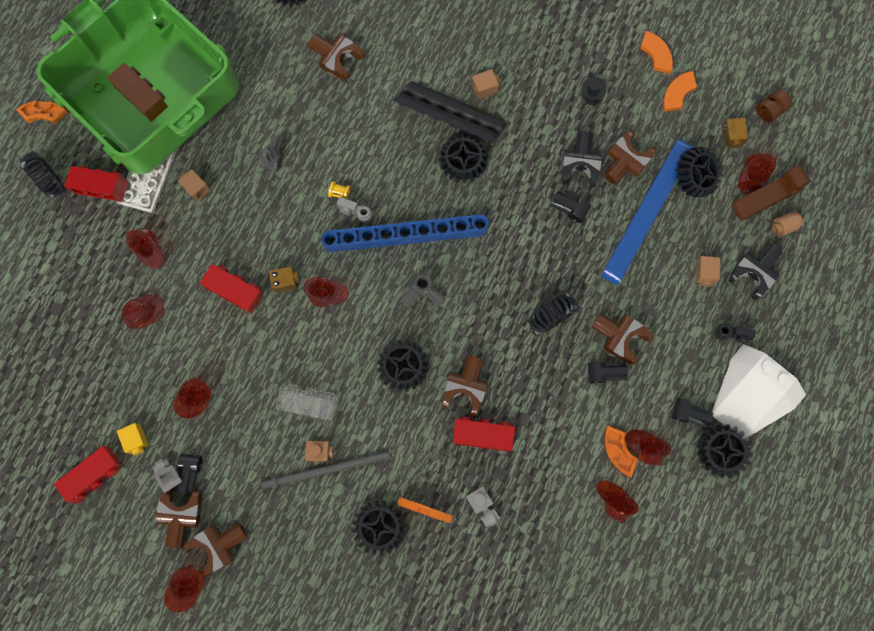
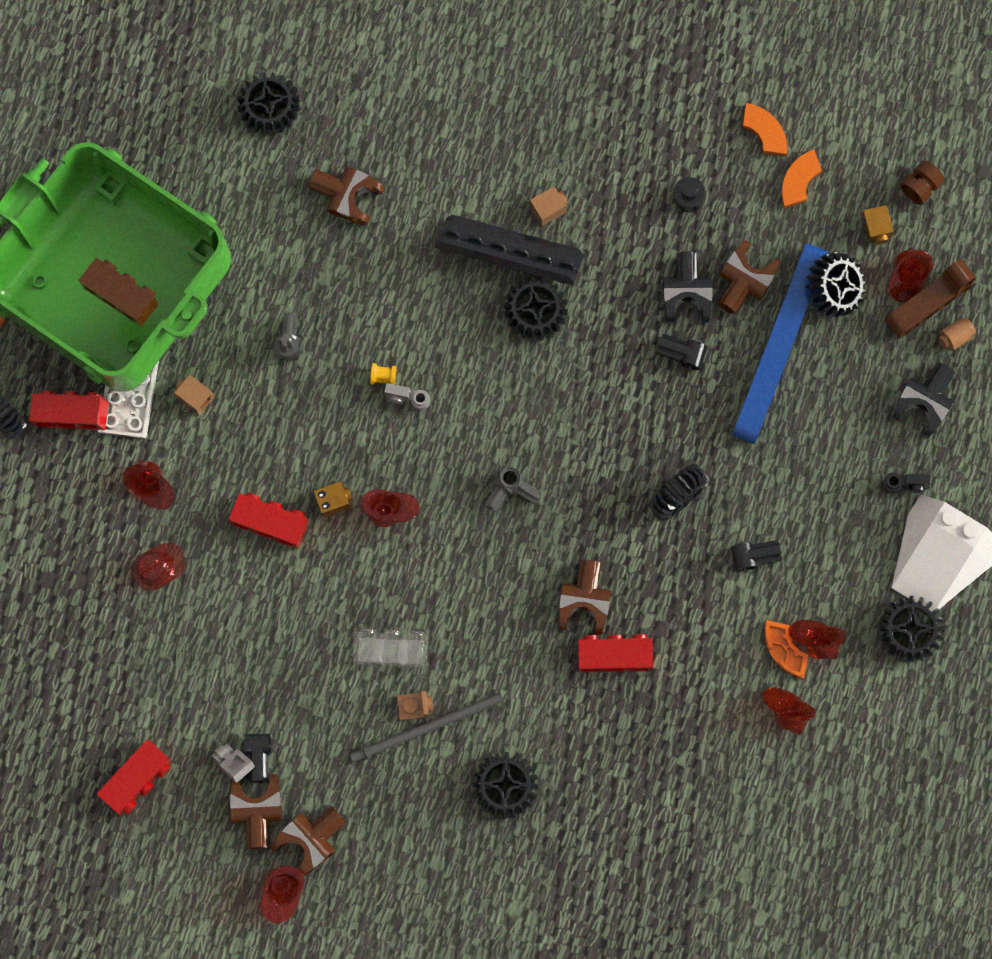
camera: 10 degrees left, 0 degrees up
(133, 439) = (181, 726): yellow brick -> none
(192, 398) = (246, 664): clear red piece -> none
(396, 230) = (485, 408): blue beam -> none
(407, 357) = (511, 589): black gear -> none
(424, 510) = (558, 755): orange tile -> none
(480, 502) = (624, 736): light grey plate -> none
(620, 334) = (765, 507): reddish brown connector -> none
(687, 412) = (862, 589): black piece -> none
(707, 271) = (864, 409): medium nougat brick -> none

